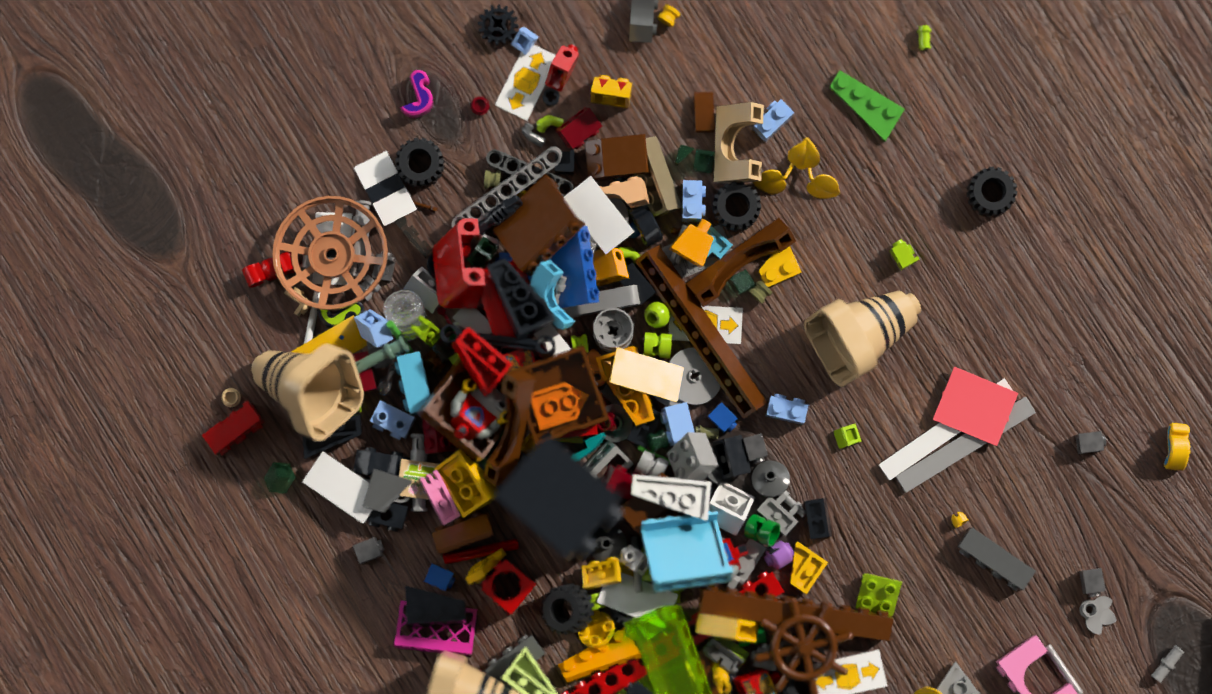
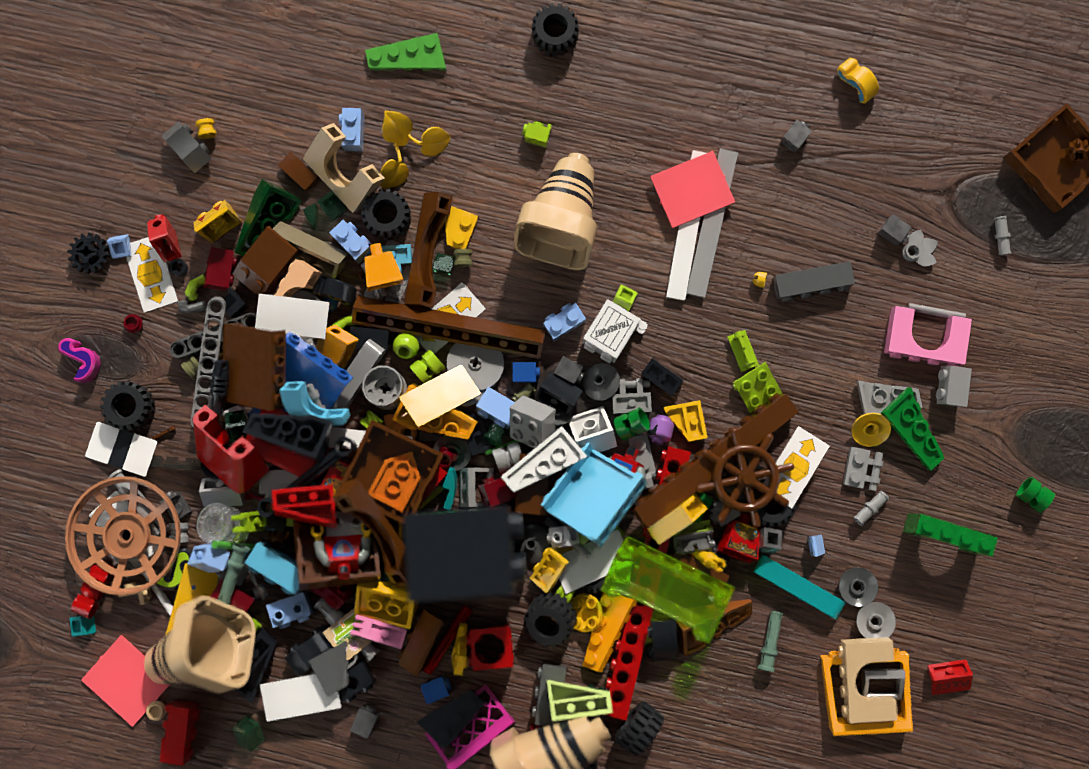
camera: 40 degrees left, 0 degrees up
(229, 354) = (122, 681): none -> coral piece
(237, 286) = (82, 626): none -> teal slope
(656, 118) = (267, 208): none -> dark green wedge
(813, 450) = (612, 331): none -> white container
(895, 558) = (743, 350): none -> lime hinge

